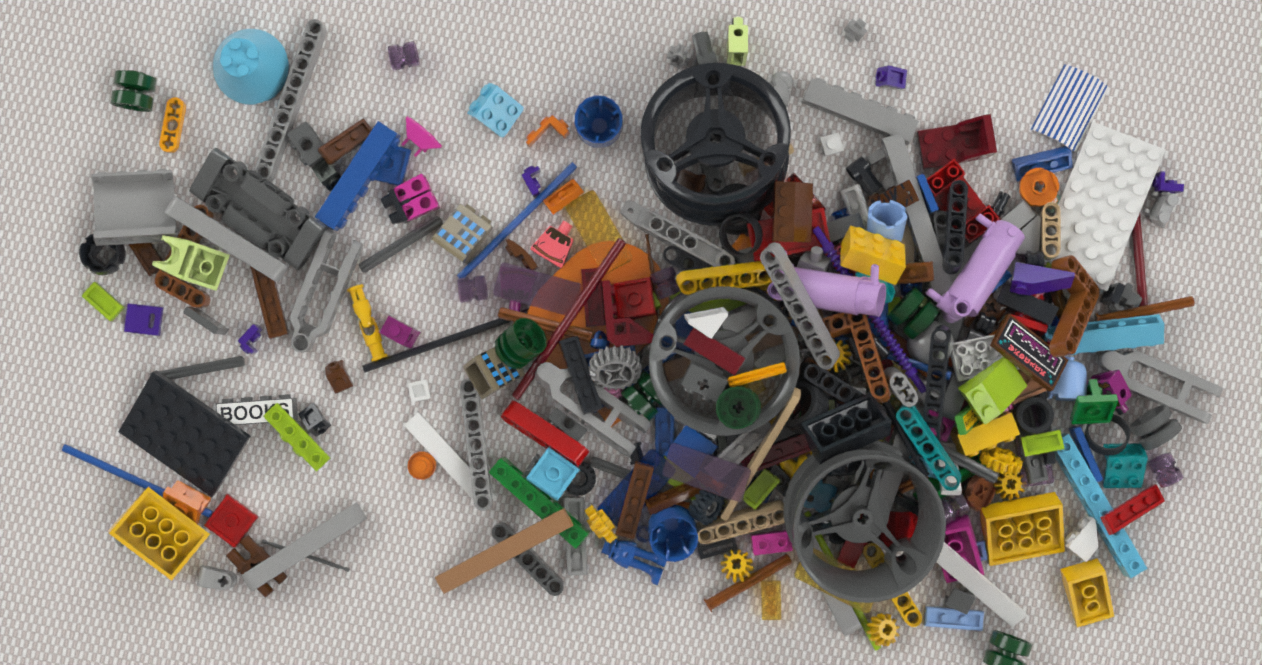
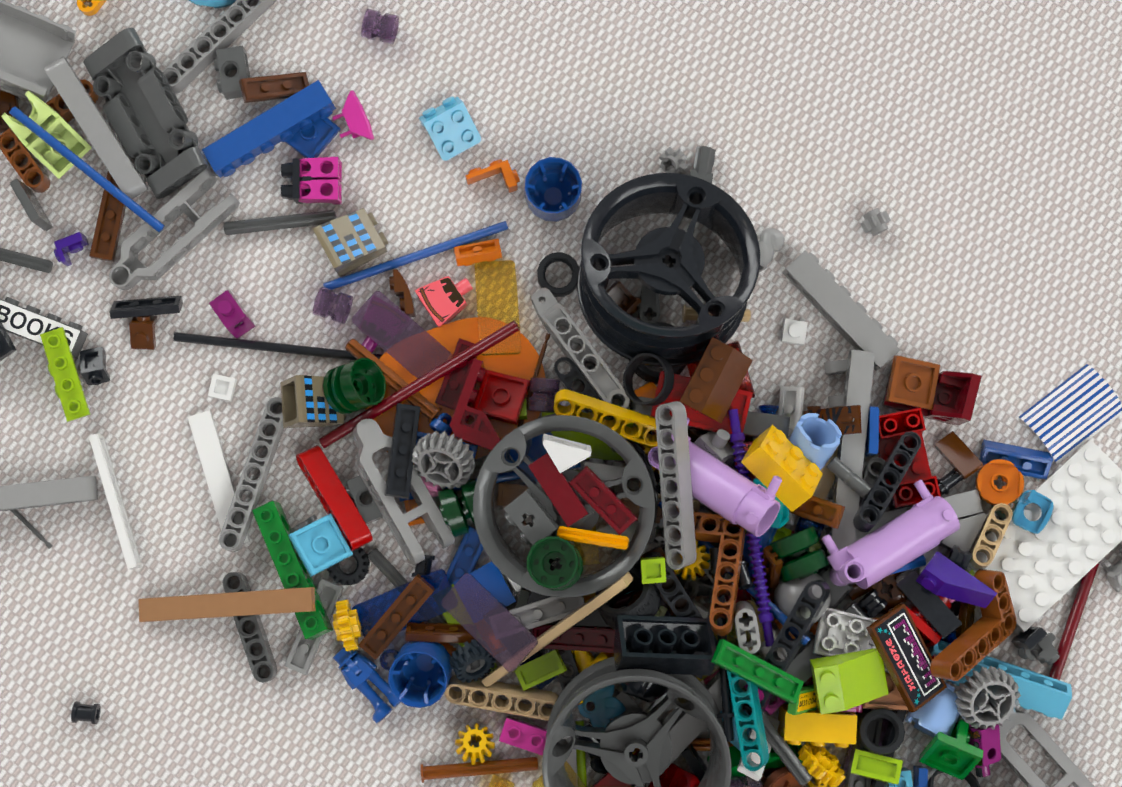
camera: 15 degrees right, 5 degrees down
(236, 274) = (87, 169): none -> blue piece
(326, 174) = (237, 111): pearl dark grey bracket -> none
(331, 357) = (146, 307): none -> black tile
(363, 311) = (204, 276): yellow piece -> none
(381, 513) = (115, 501): none -> white tile
(421, 465) = (185, 469): orange plate -> none
(532, 184) = (452, 223): dark purple bracket -> none
(632, 170) = (558, 257): none -> black tyre
(717, 552) = (462, 709): black tile -> none
(737, 42) = (742, 175): yellowish green torso -> none
(752, 343) = (603, 500): none -> dark red tile
(812, 377) = (653, 570): none -> lime tile
(861, 172) = (812, 377): black piece -> none
(891, 77) = (892, 290): dark purple bracket -> none
(899, 333) = (772, 568): none -> reddish brown tile
(924, 416) = (757, 671): none -> green tile
(927, 238) = (851, 479): none -> dark grey piece
(939, 141) = (912, 382): none -> dark orange tile
(998, 180) = (958, 455): none -> reddish brown tile
(1069, 186) = (1042, 501): none -> dark azure piece
(1102, 354) = (987, 698): none -> light grey gear
(1149, 309) = (1063, 674): dark orange axle -> none

